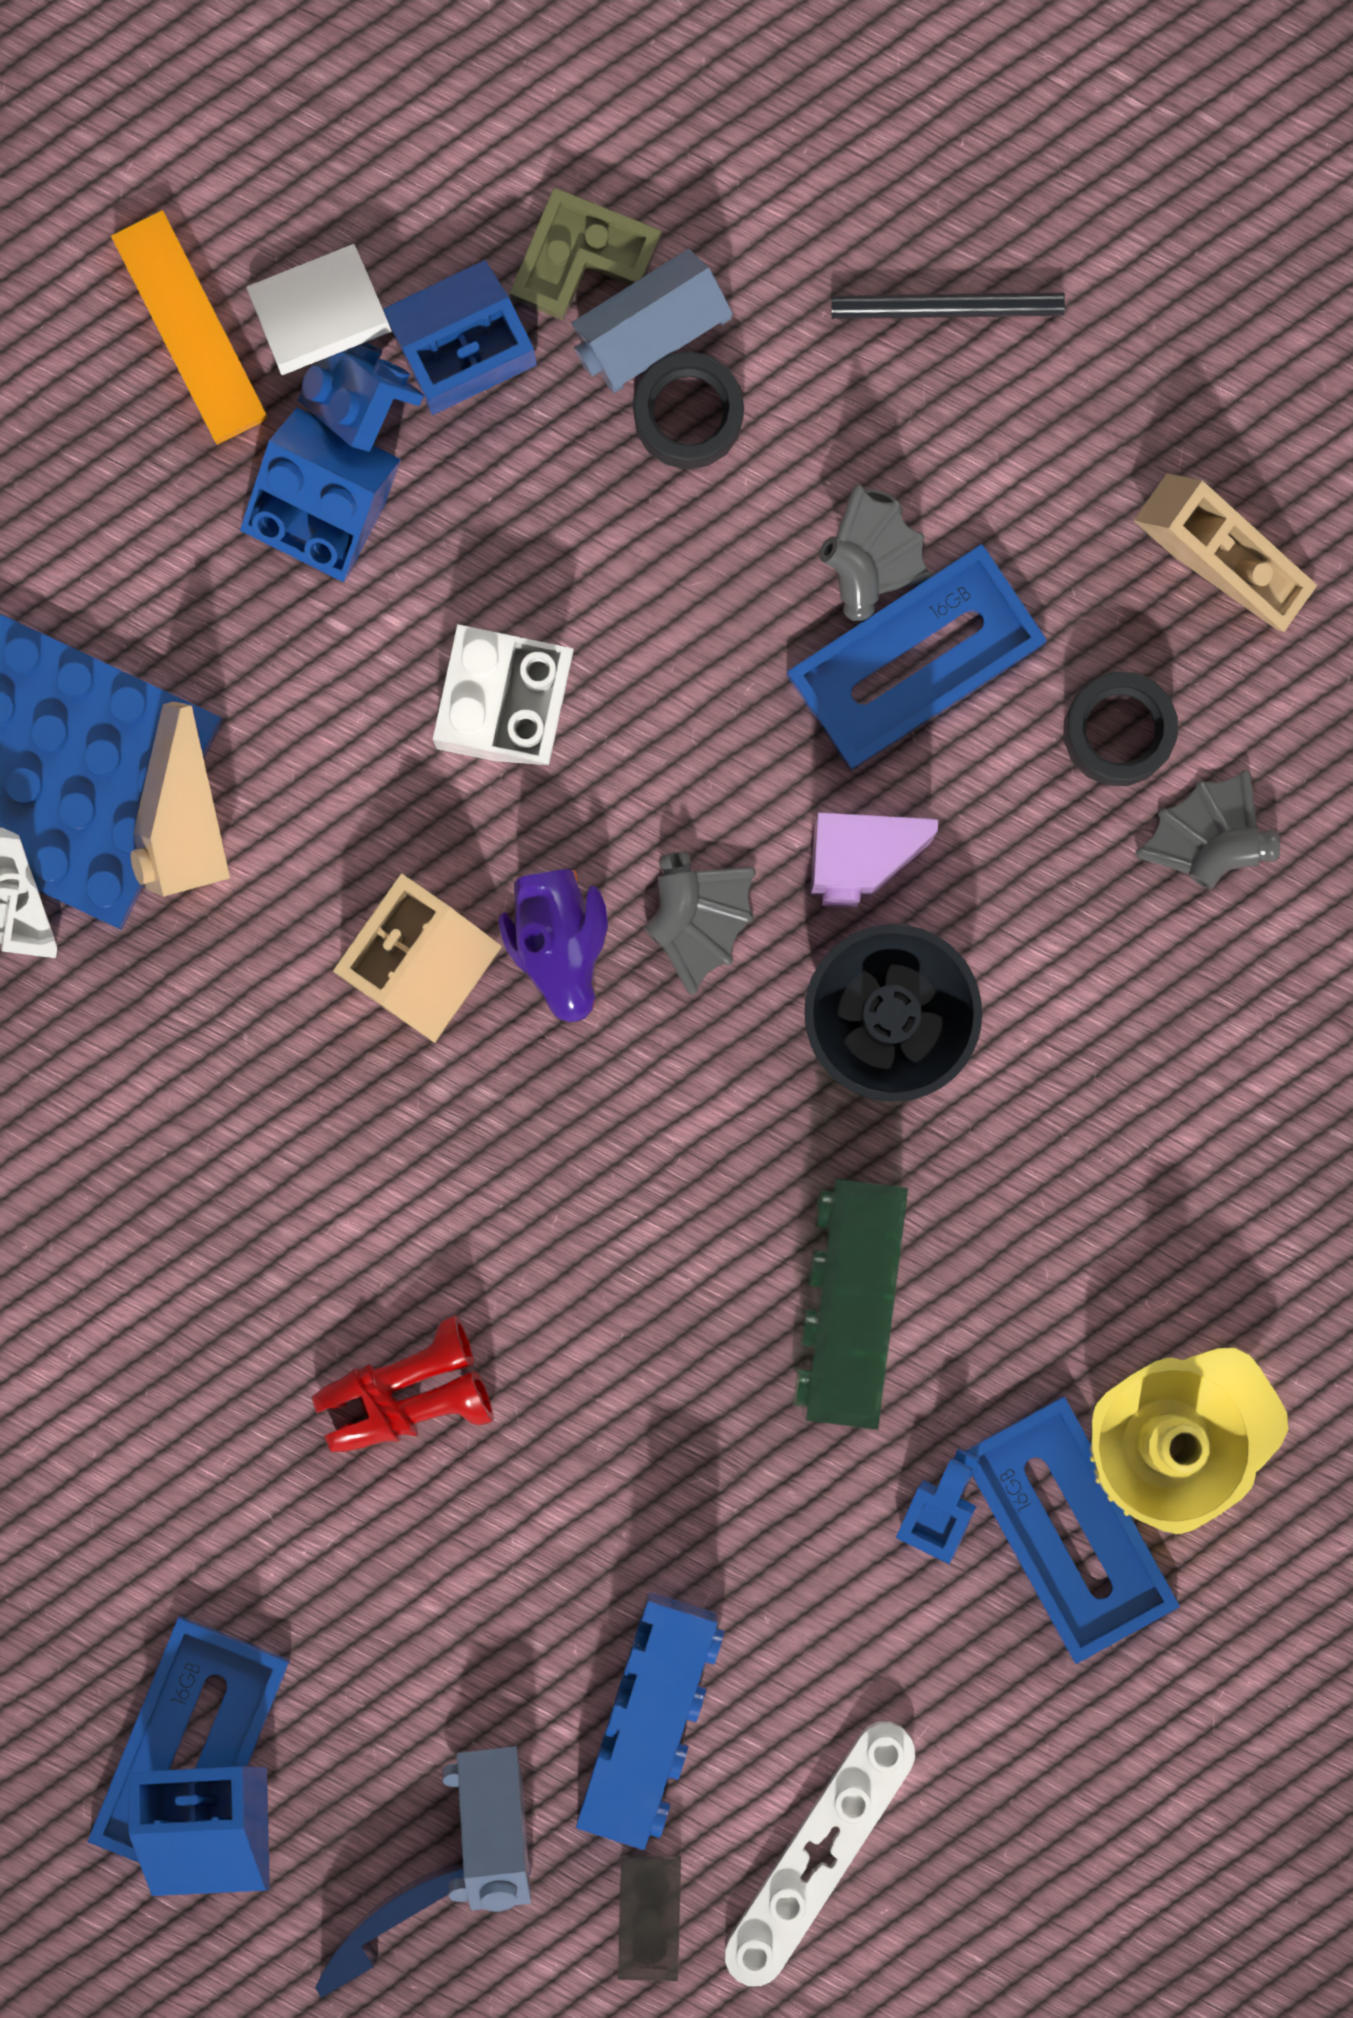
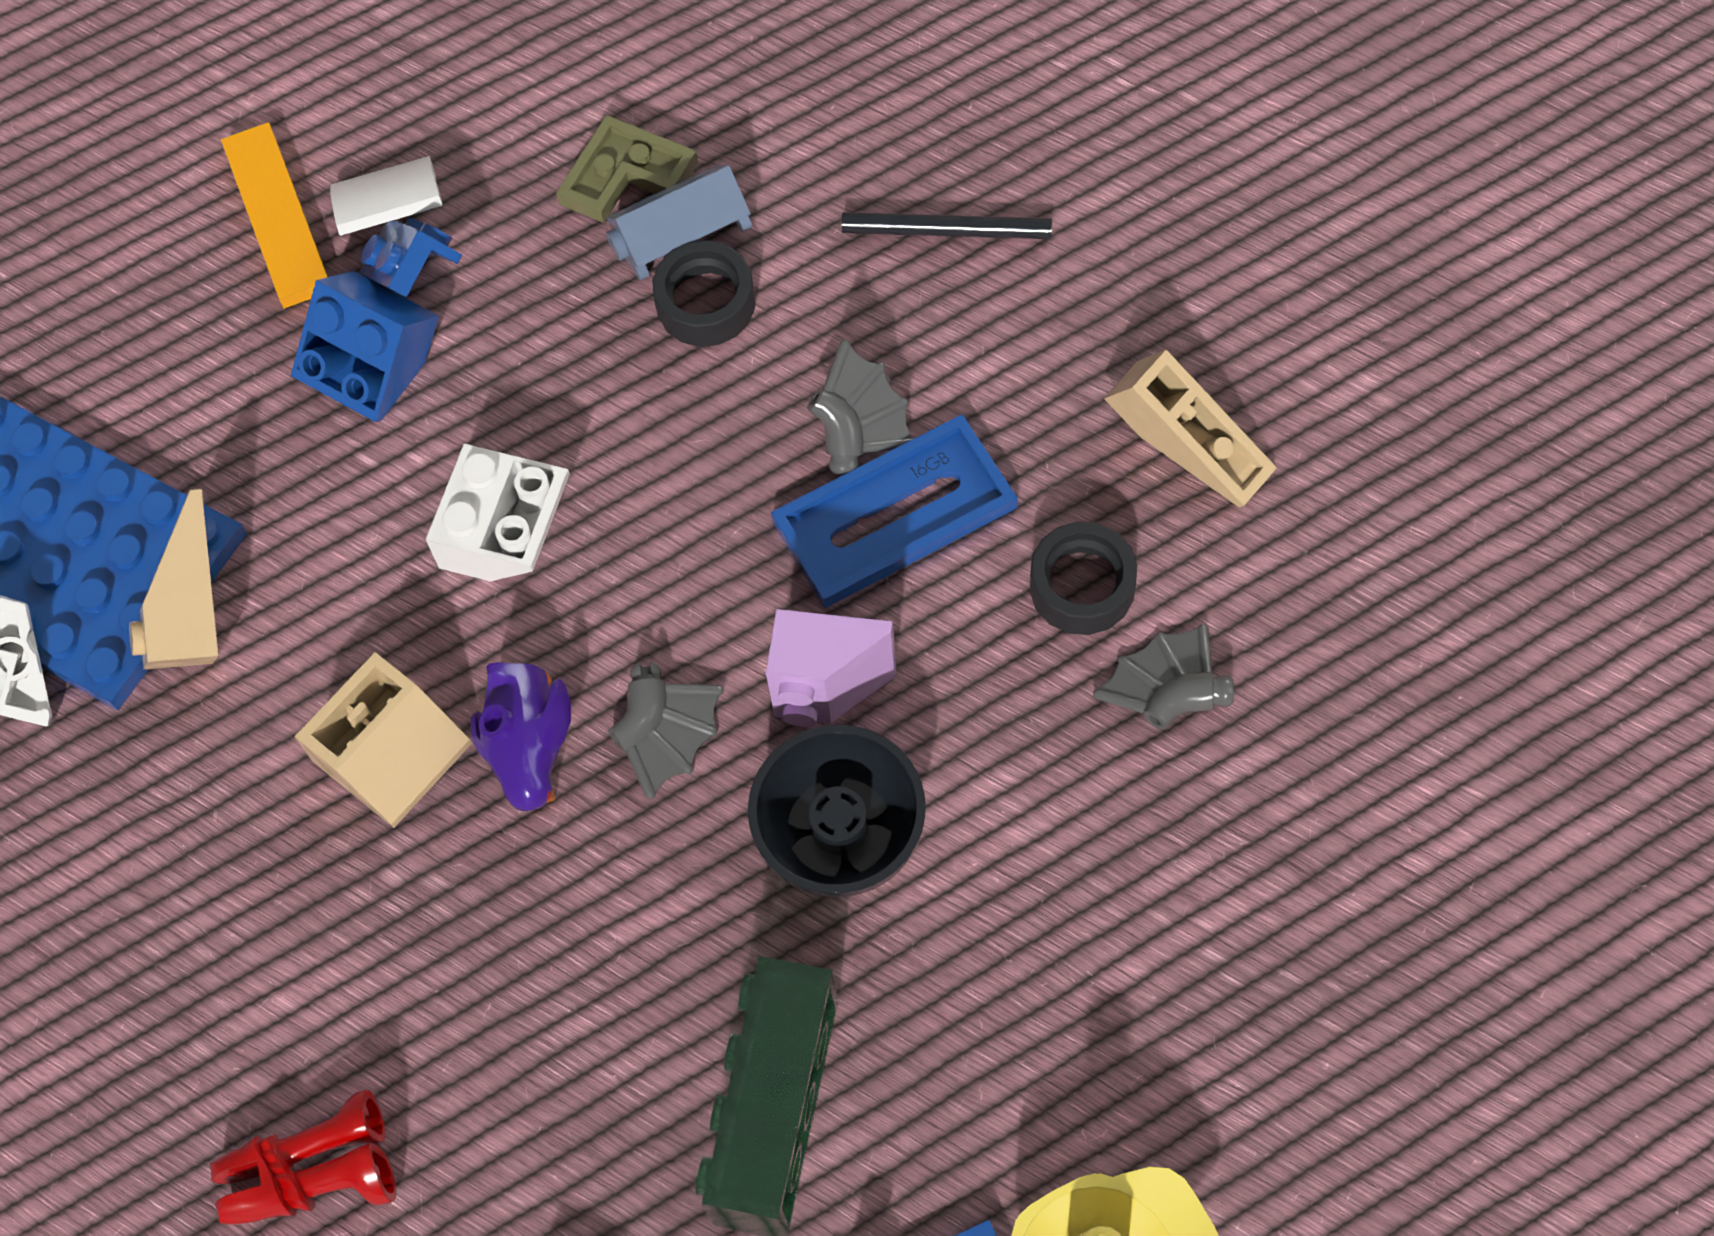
camera: 10 degrees right, 20 degrees down
(460, 337) = (509, 230): blue slope -> none

